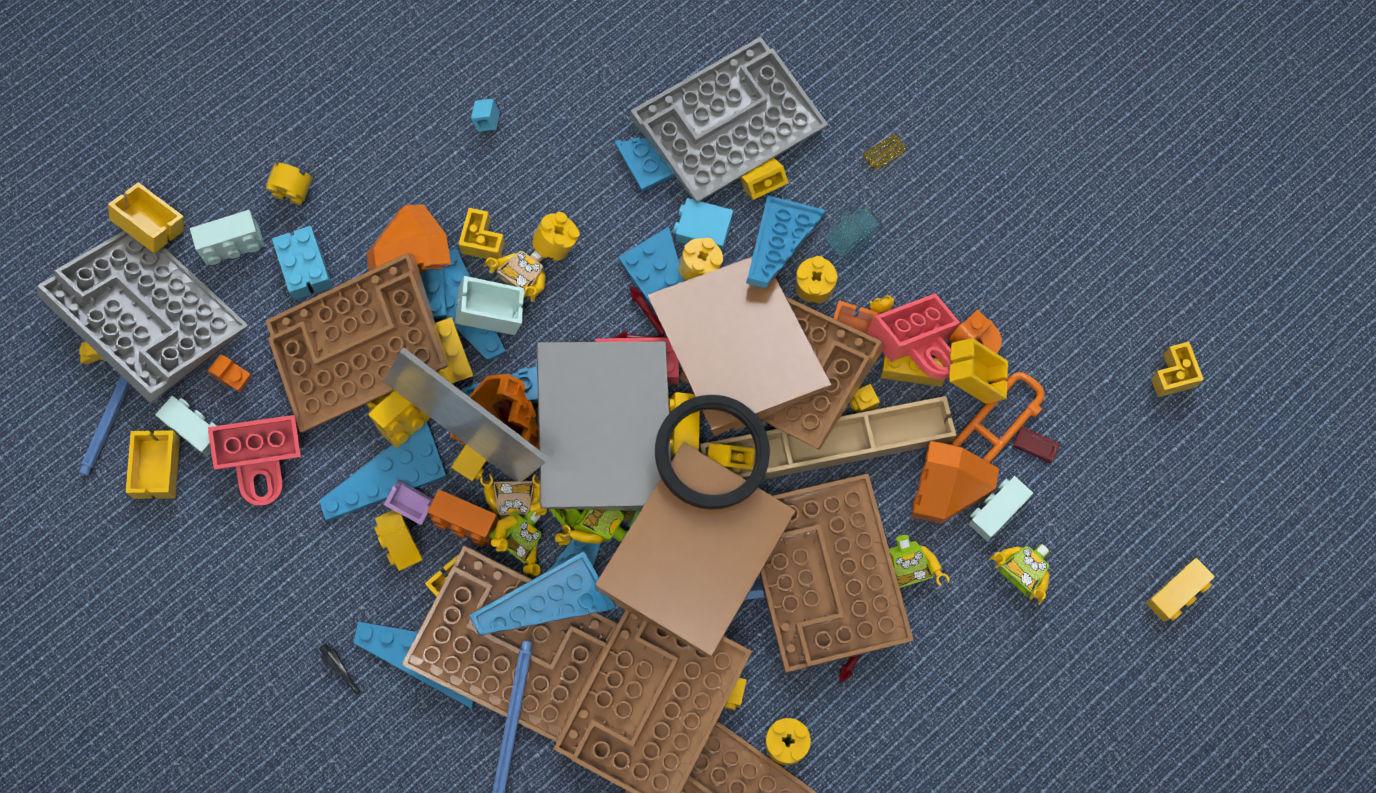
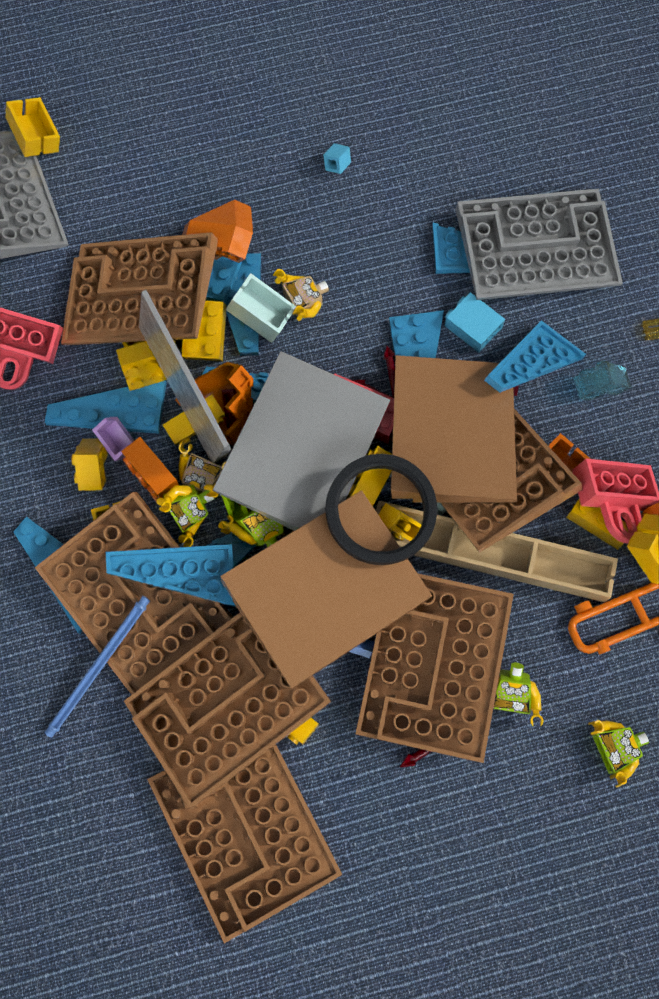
camera: 30 degrees right, 0 degrees up
(227, 237) = (85, 167): light aqua piece -> none
(229, 373) = (30, 272): orange brick -> none
(288, 183) = (154, 146): yellow brick -> none
(302, 262) = (133, 211): medium azure piece -> none
(476, 238) = (280, 251): yellow brick -> none
(555, 236) = (344, 276): yellow brick -> none
(699, 258) = (457, 345): yellow brick -> none
(764, 179) = (545, 305): yellow brick -> none
(798, 735) = (315, 801): yellow brick -> none
(824, 279) = (548, 408): yellow brick -> none
(864, 400) = (542, 528): yellow brick -> none
(882, 304) = (598, 454): yellow plate -> none
(951, 482) = (587, 637): orange panel -> none
(1000, 507) = (621, 681): light aqua brick -> none

